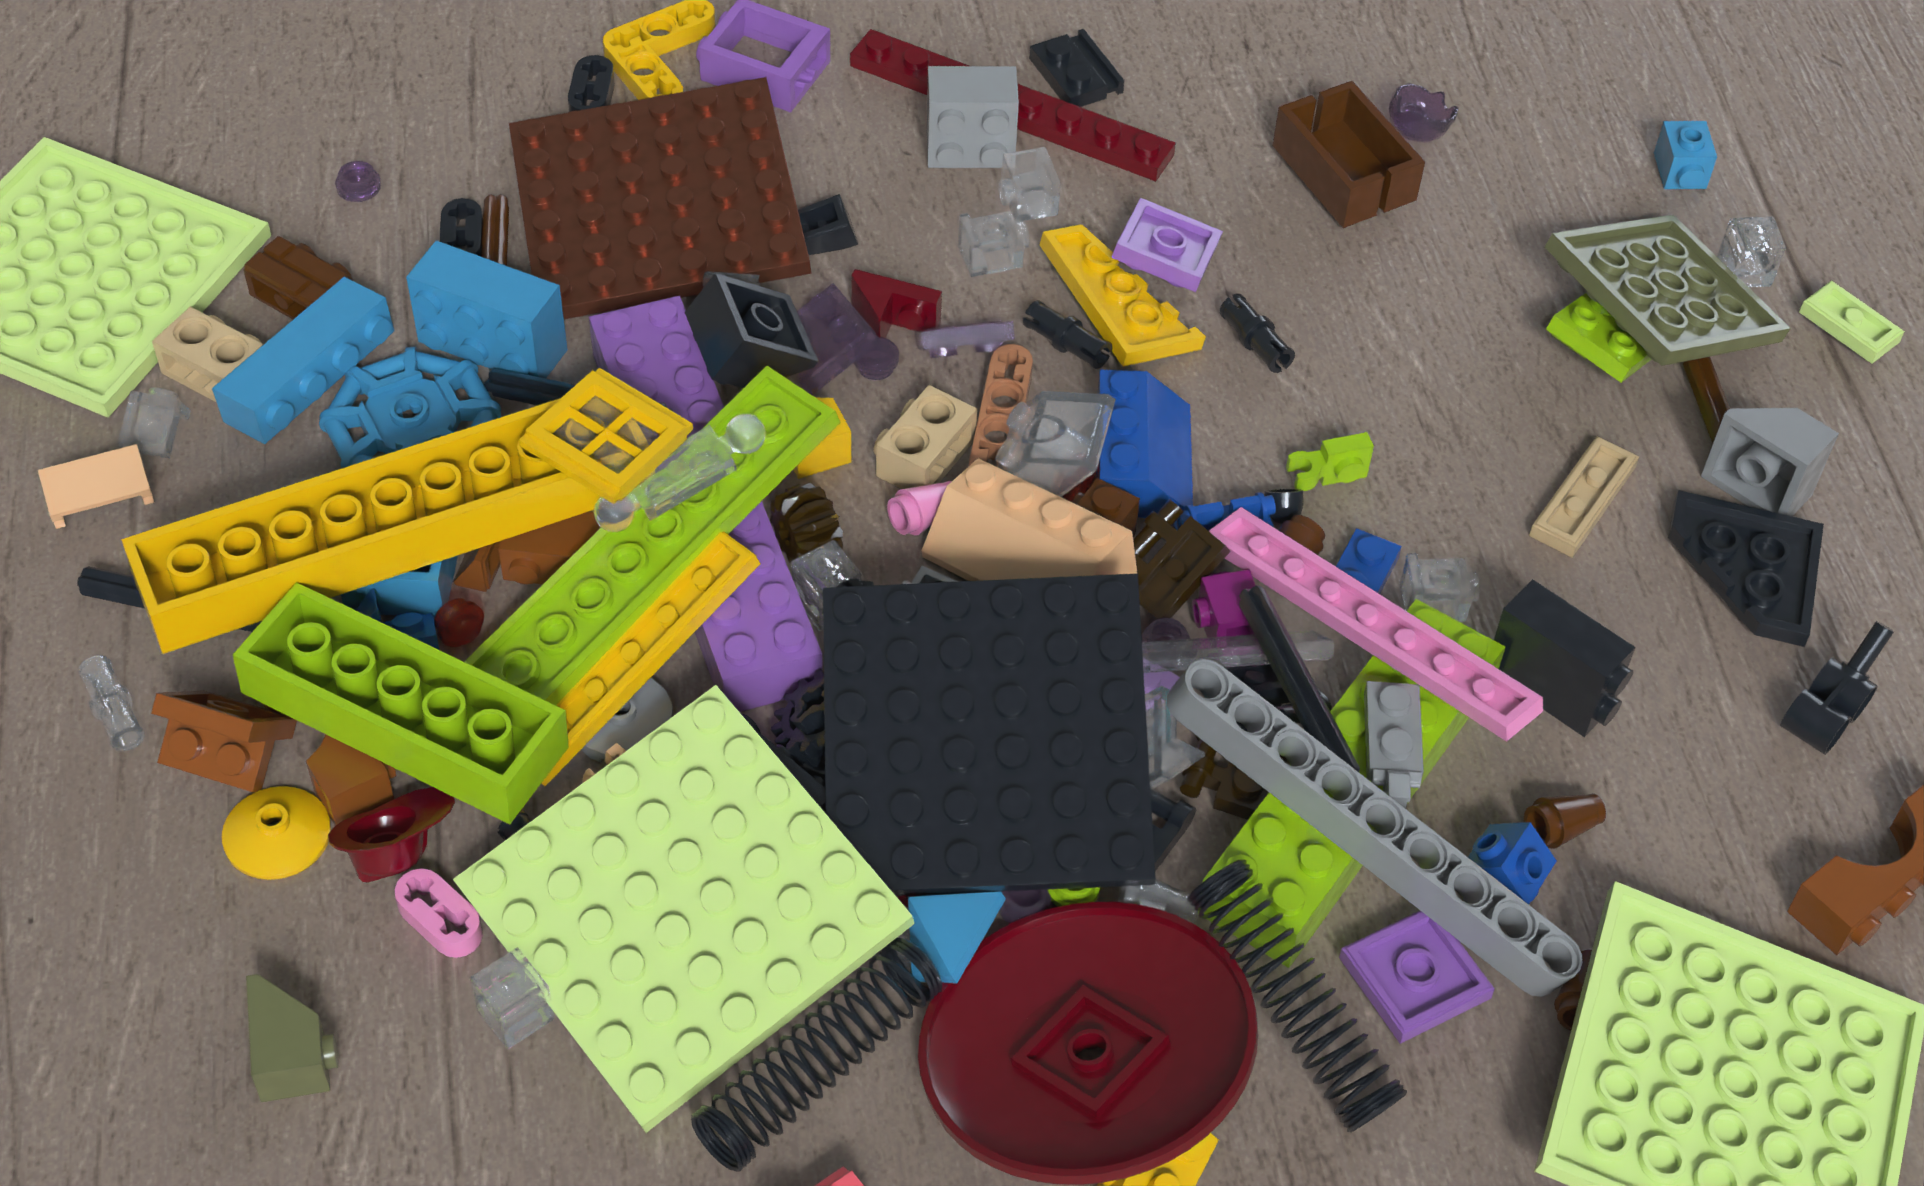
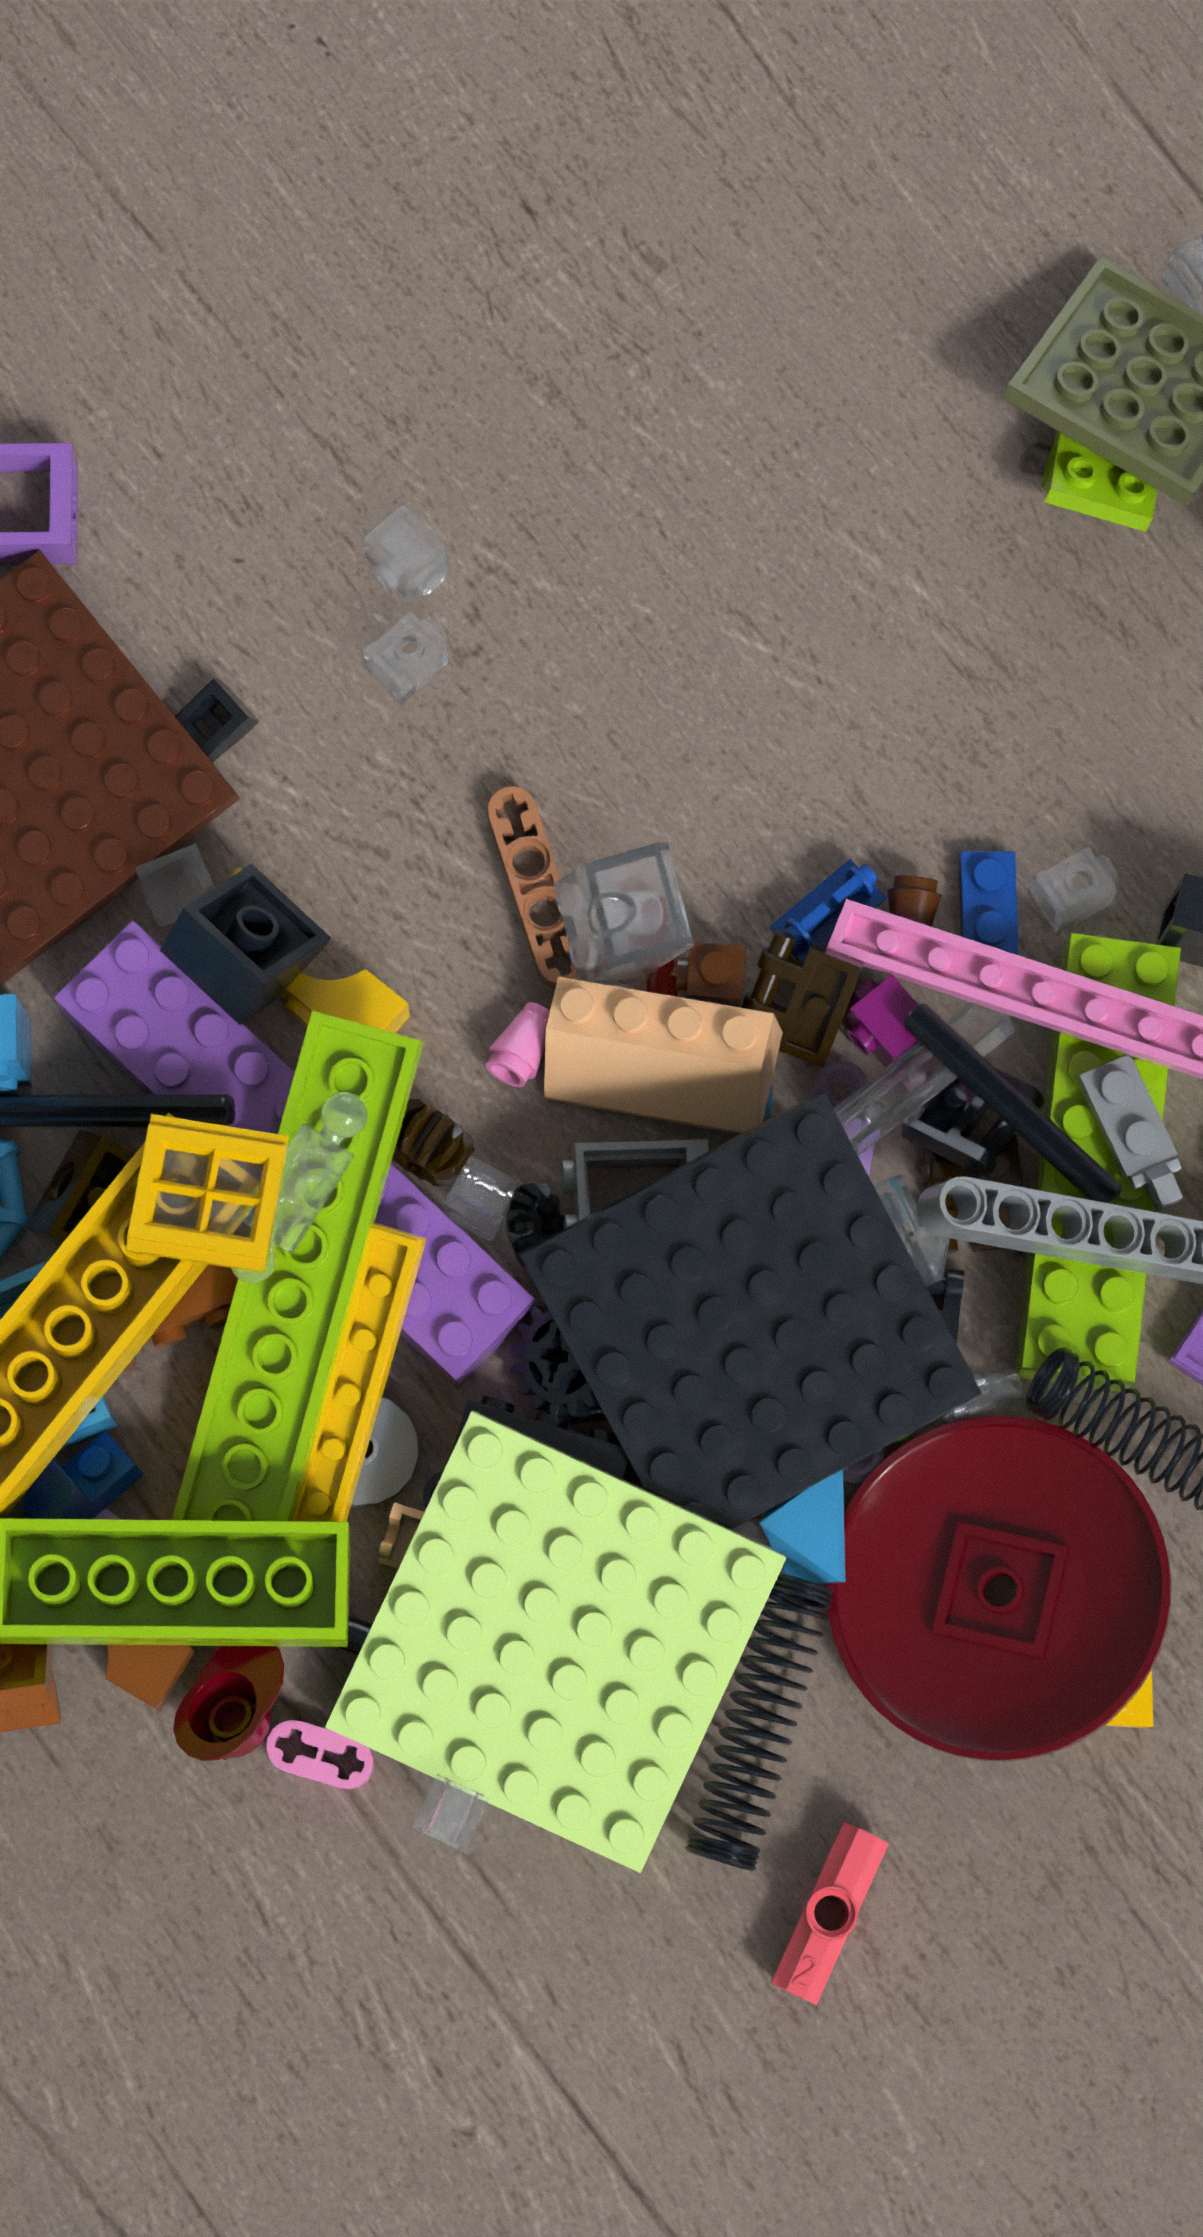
camera: 30 degrees left, 25 degrees up
(281, 848) = (136, 1753): yellow dish -> none
(286, 1044) = (271, 1967): olive slope -> none
(458, 622) = (141, 1430): clear red plate -> none
(836, 335) = (308, 867): clear purple wing -> none
(879, 361) = (365, 872): clear purple plate -> none
(894, 302) = (334, 799): dark red slope -> none
(925, 440) = (490, 964): tan brick -> none
(944, 340) = (446, 801): clear purple plate -> none
(971, 115) = (302, 500): light grey brick -> none
(1037, 112) = (316, 435): dark red plate -> none
(1067, 334) = (549, 743): black pin -> none
(1076, 69) = (362, 345): black plate -> none
(1117, 299) = (593, 680): yellow wing -> none
(1146, 441) = (712, 852): blue slope -> none
(1167, 245) = (596, 570): medium lavender plate -> none
(1257, 333) = (743, 641): black pin -> none
(1287, 503) = (876, 851): black hinge -> none
(1337, 461) = (910, 774): lime plate -> none
(1351, 157) = (728, 345): reddish brown piece -> none
(1420, 114) = (775, 235): clear purple hair -> none
(1584, 496) = (1161, 688): tan tile -> none
(1685, 154) = (1079, 159): dark azure brick -> none

